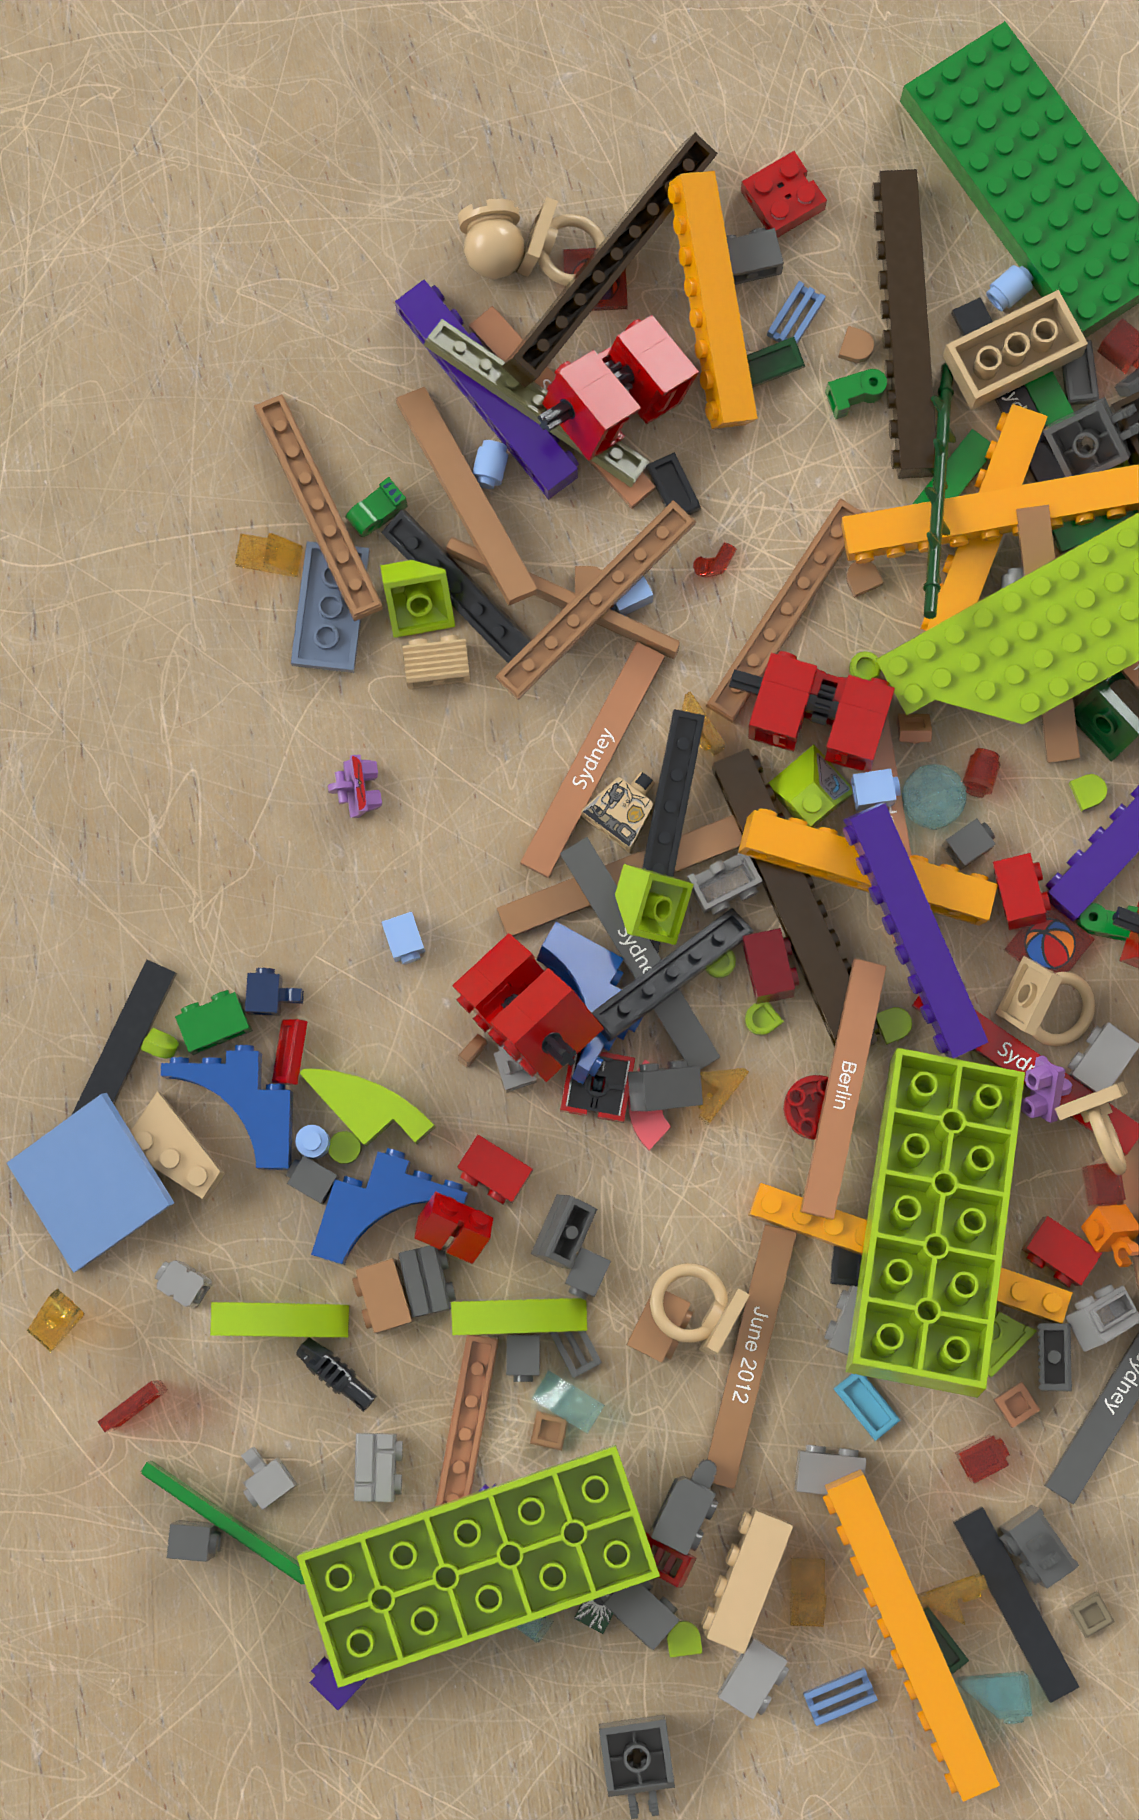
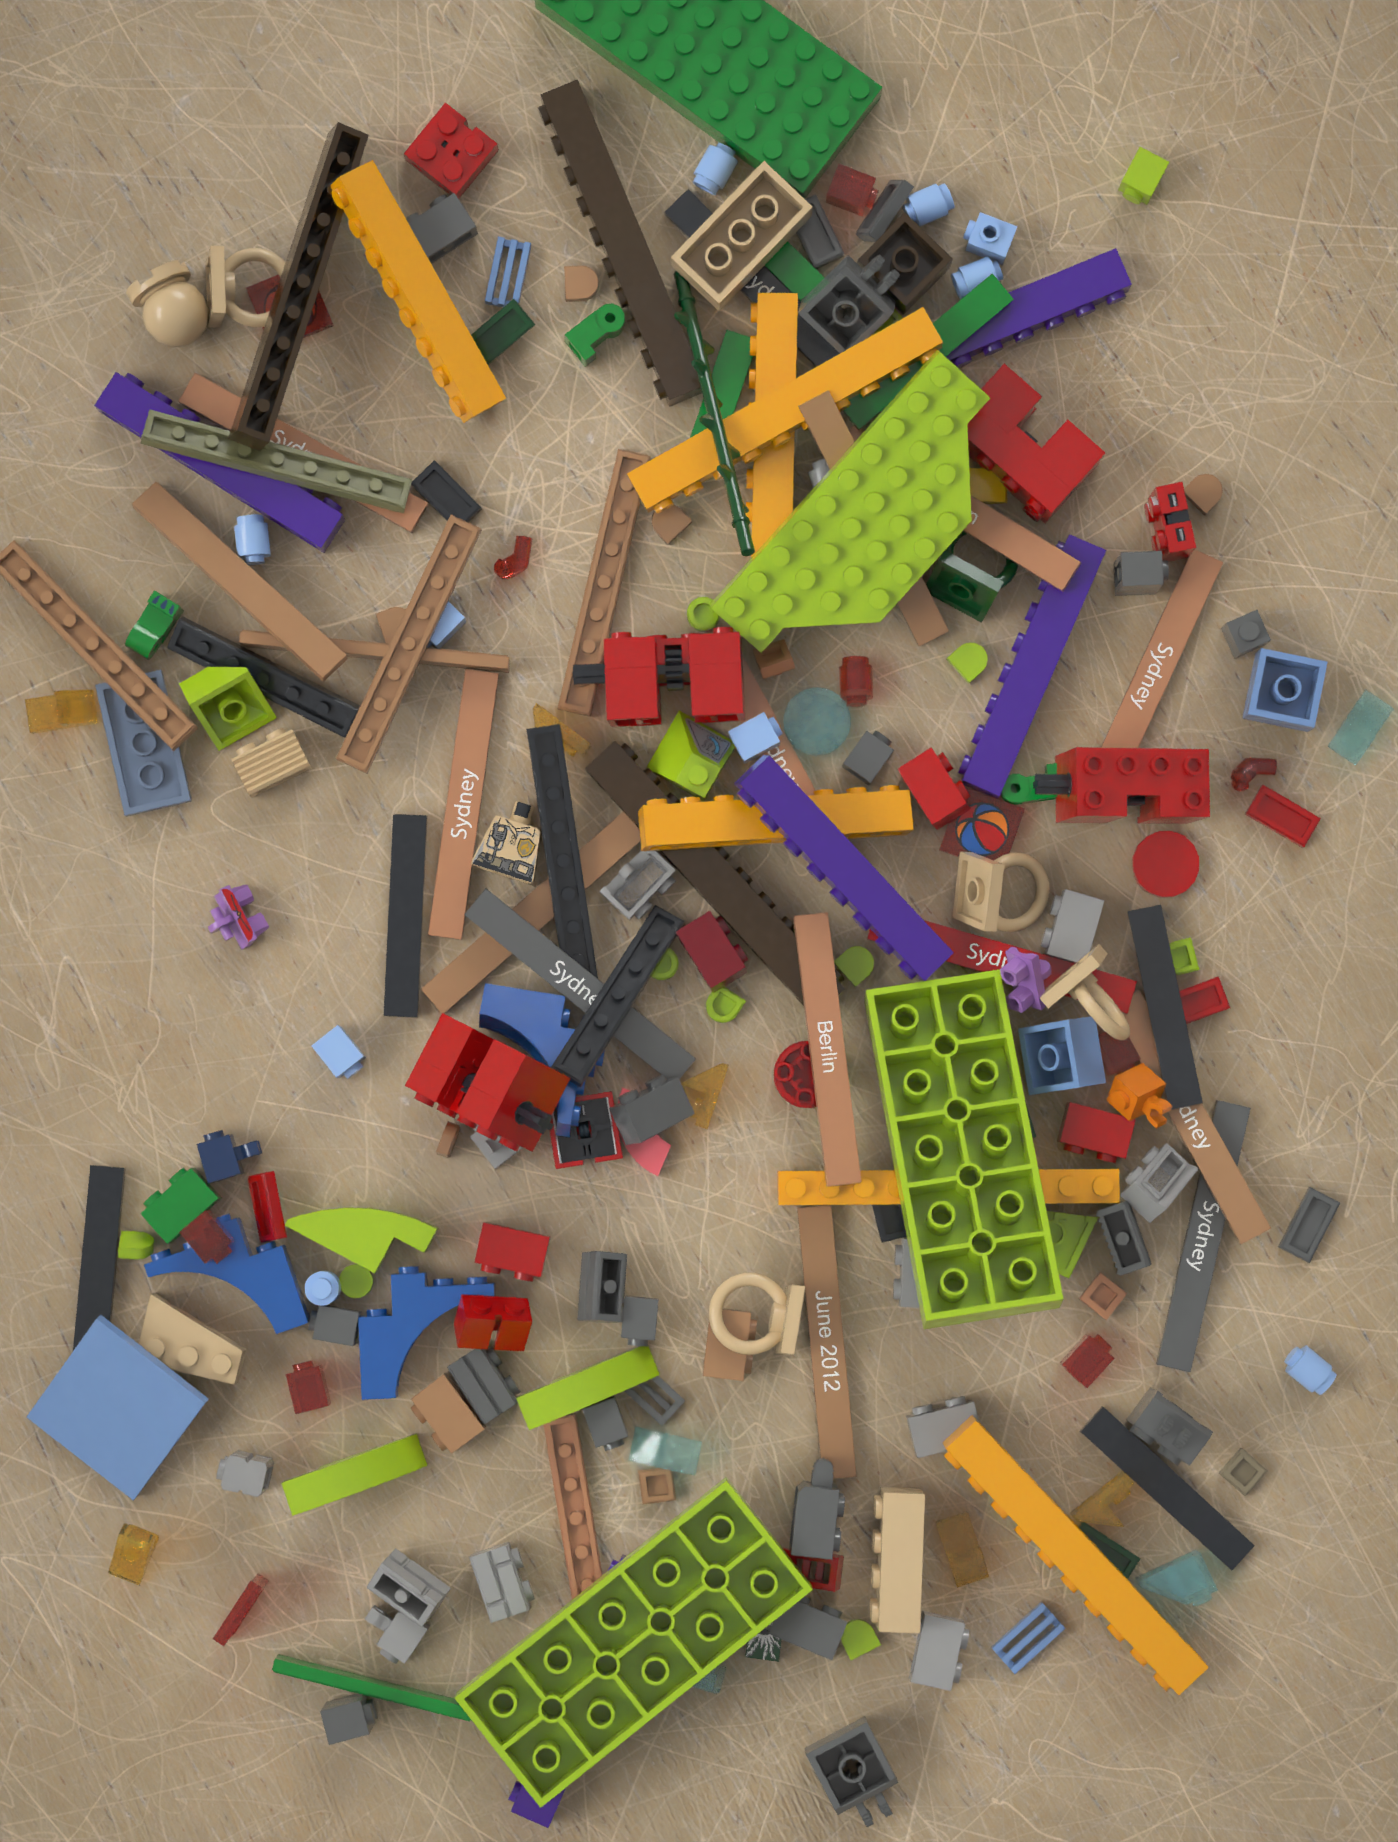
camera: 25 degrees left, 5 degrees up
(227, 1058) = (208, 1238): none -> clear red brick
(267, 1226) = (308, 1387): none -> clear red brick
(291, 1441) = (408, 1587): none -> light grey brick
(334, 1373) = (427, 1505): black hinge -> none
(506, 839) = (405, 915): none -> black tile
(599, 391) = (332, 432): piece -> none
(652, 903) = (574, 932): lime slope -> none
(867, 1405) = (958, 1349): medium azure tile -> none
(1055, 1170) = (1061, 1055): none -> medium blue brick

